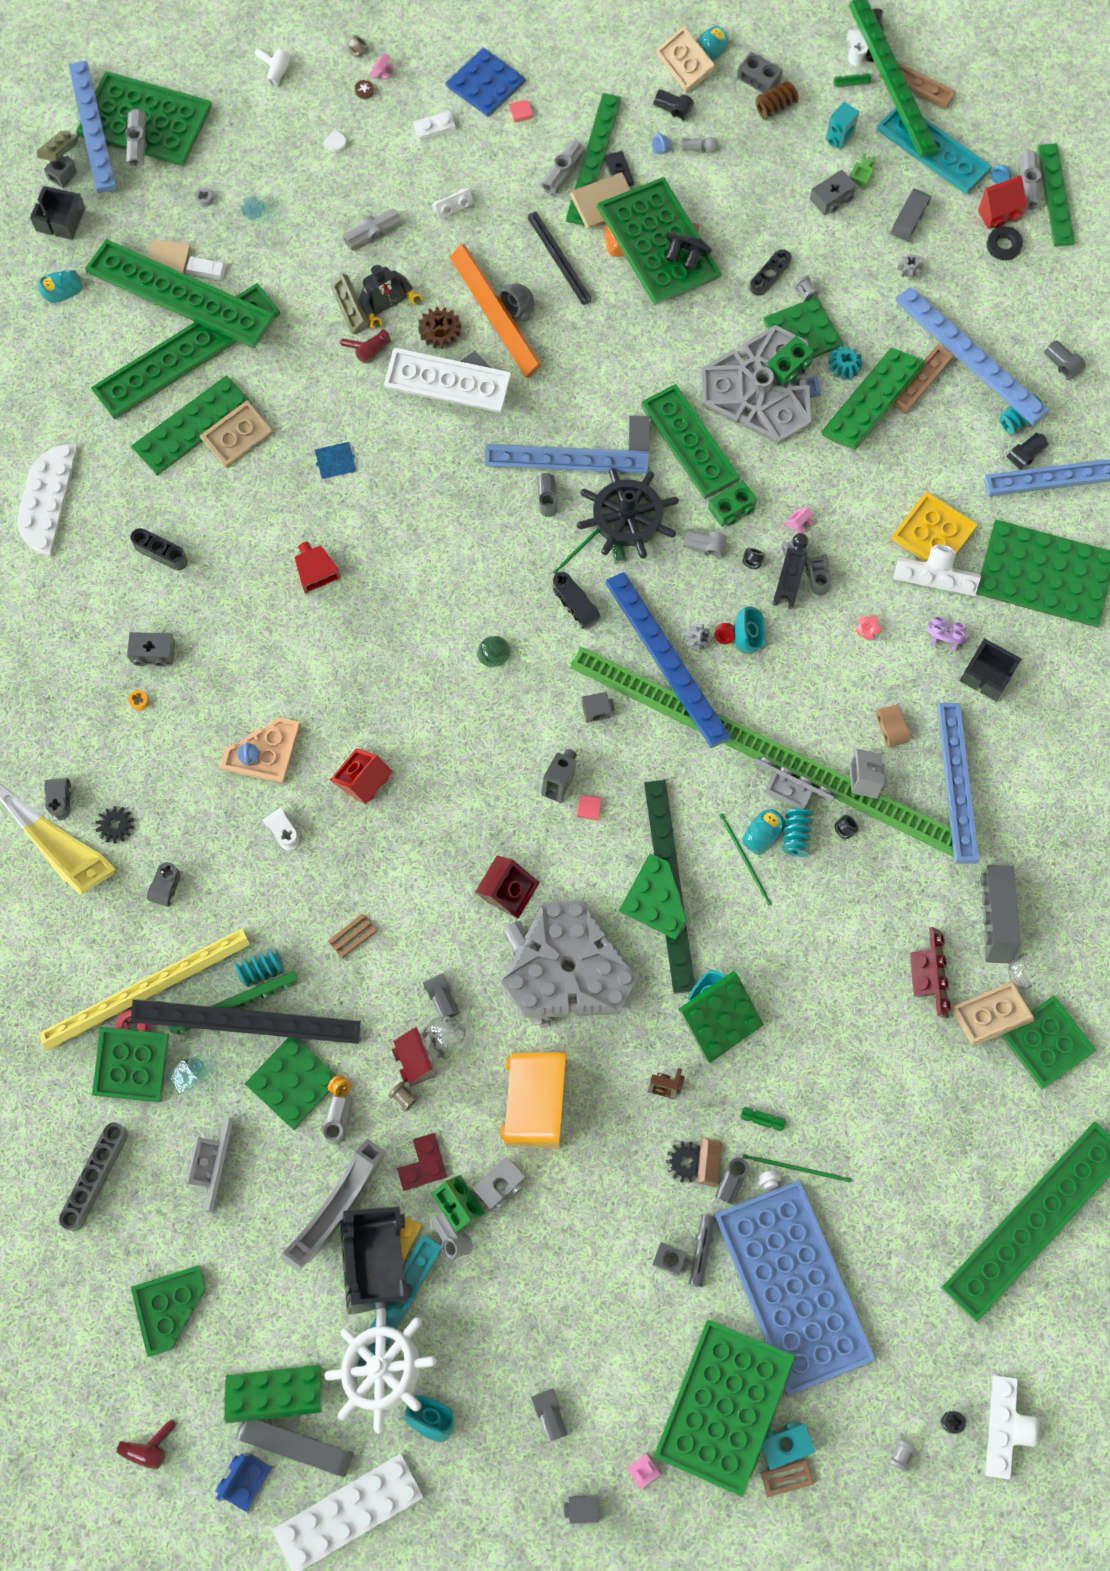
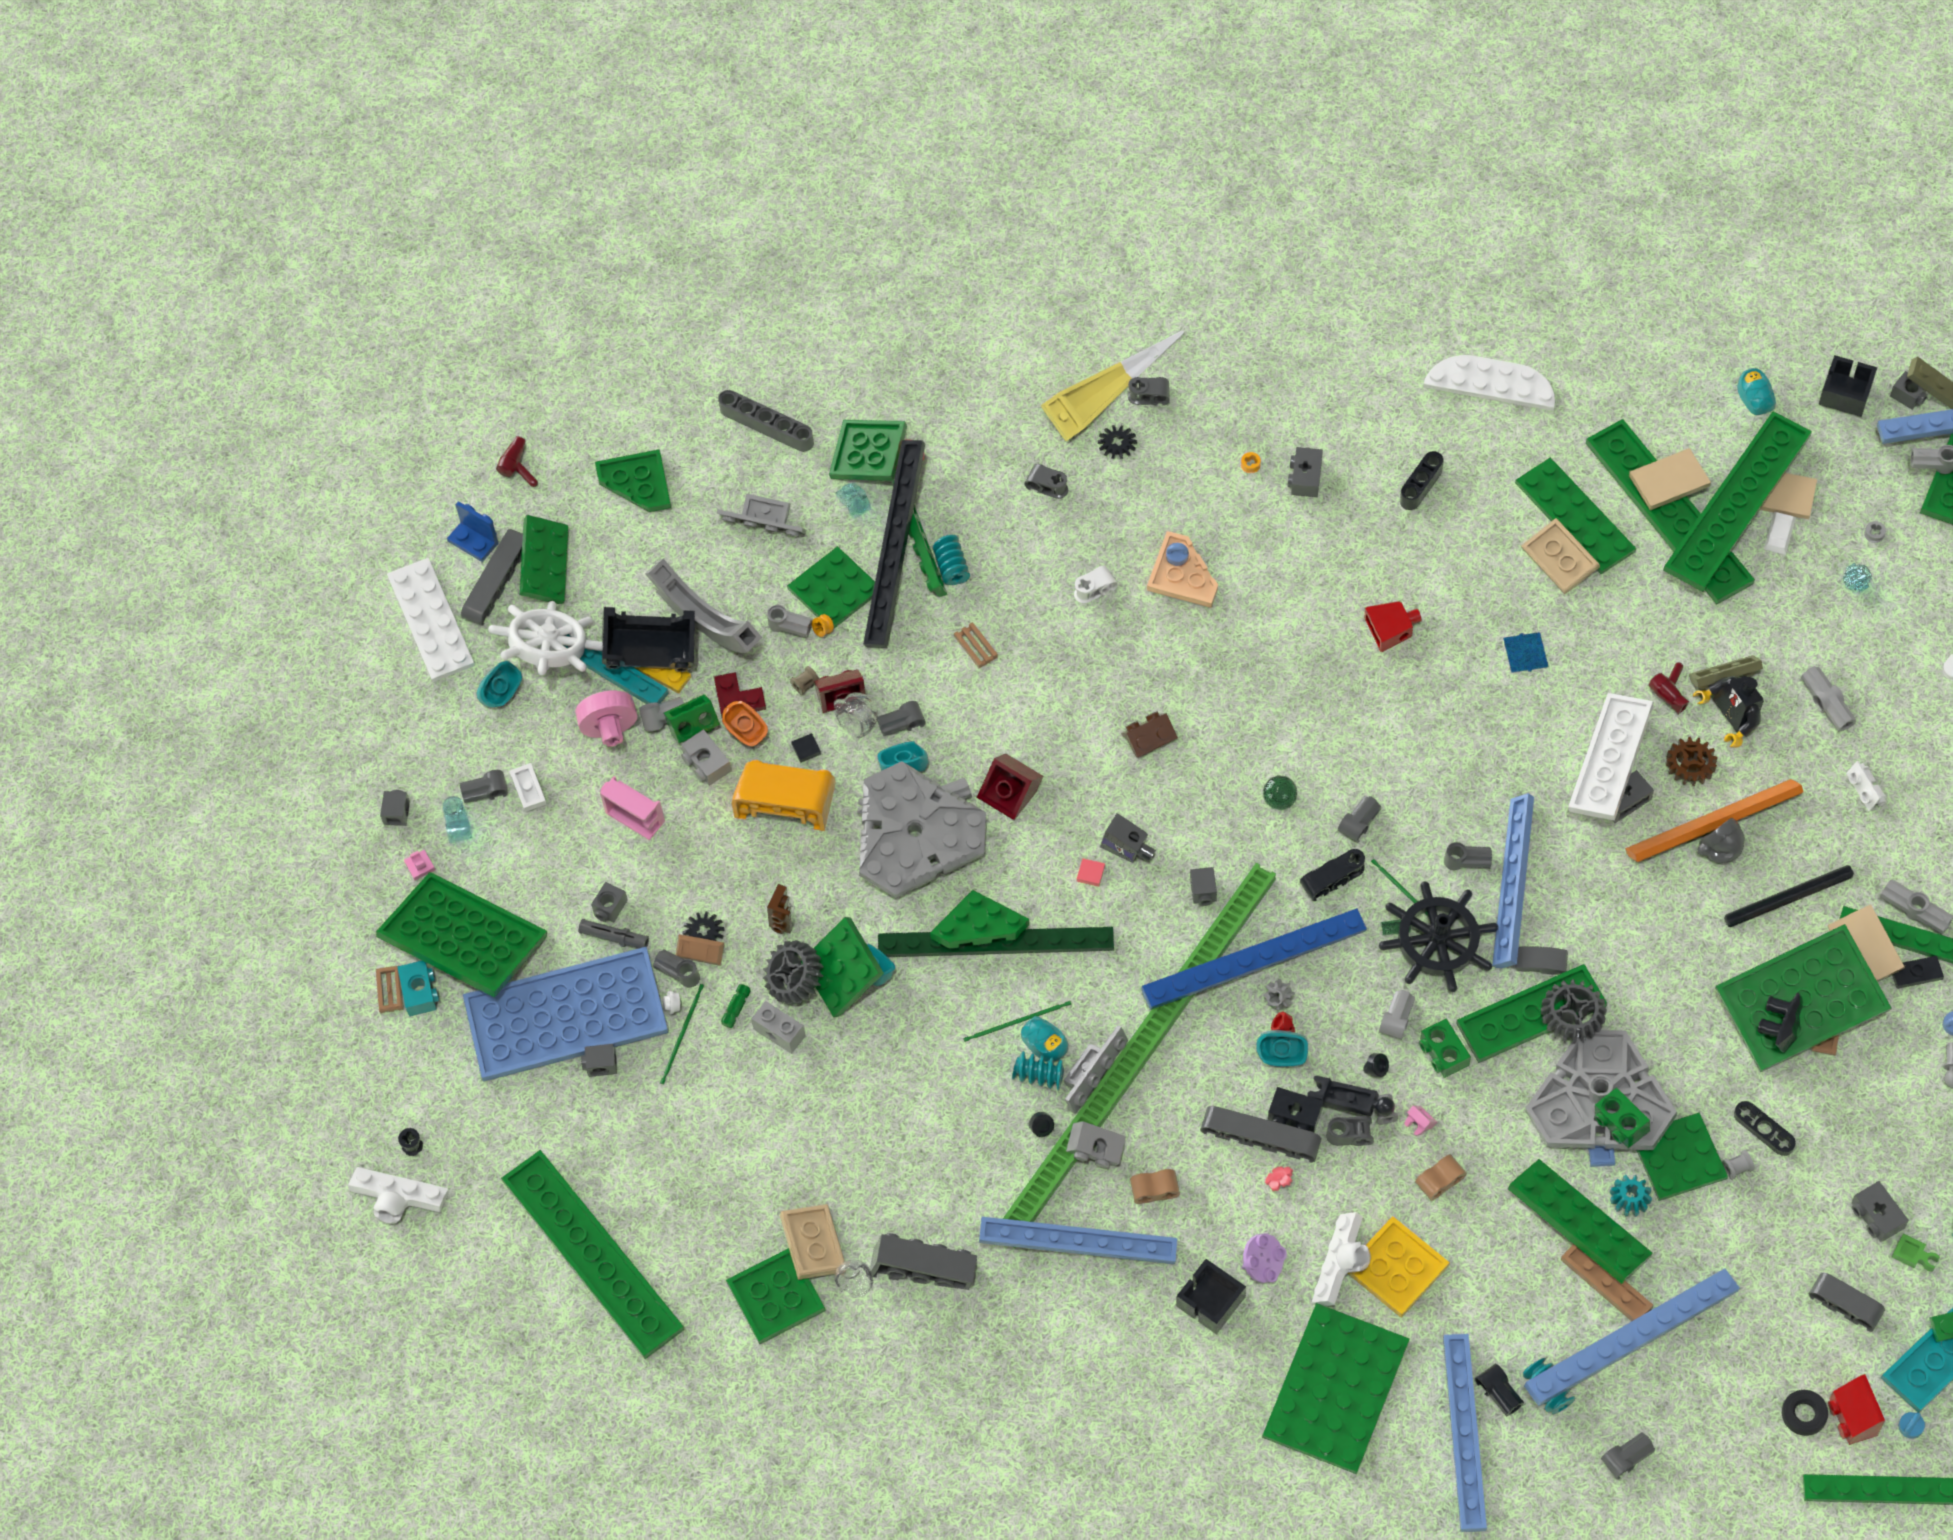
camera: 100 degrees right, 10 degrees down
(144, 989) = (943, 465): light yellow plate -> none
(157, 346) = (1669, 479): none -> tan tile
(361, 775) = (1145, 658): red slope -> none
(440, 767) = (1149, 734): none -> reddish brown bracket
(460, 1148) = (744, 723): none -> orange piece
(469, 1289) = (606, 716): none -> bright pink piece
(477, 1087) = (806, 748): none -> black tile
(487, 988) = (906, 752): none -> teal piece
(519, 584) = (1357, 822): none -> dark grey piece
(545, 1367) = (527, 787): none -> white plate
(567, 1250) = (632, 808): none -> bright pink window
(596, 1436) = (456, 823): none -> clear light blue piece
(696, 393) = (1588, 1003): none -> dark grey gear
(738, 1071) = (798, 977): none -> dark grey gear
(785, 1072) = (778, 1027): none -> light grey brick
(806, 606) = (1287, 1102): none -> black brick
(831, 644) = (1261, 1132): none -> dark grey beam
(840, 1242) = (599, 1060): none -> dark grey brick
(850, 502) = (1440, 1177): none -> medium nougat axle
(902, 1455) = (389, 1092): light grey bush -> none
(910, 266) = (1768, 1296): light grey gear -> none
(929, 973) = (865, 1188): dark red bracket -> none
(1031, 177) = (1916, 1457): light grey piece -> none

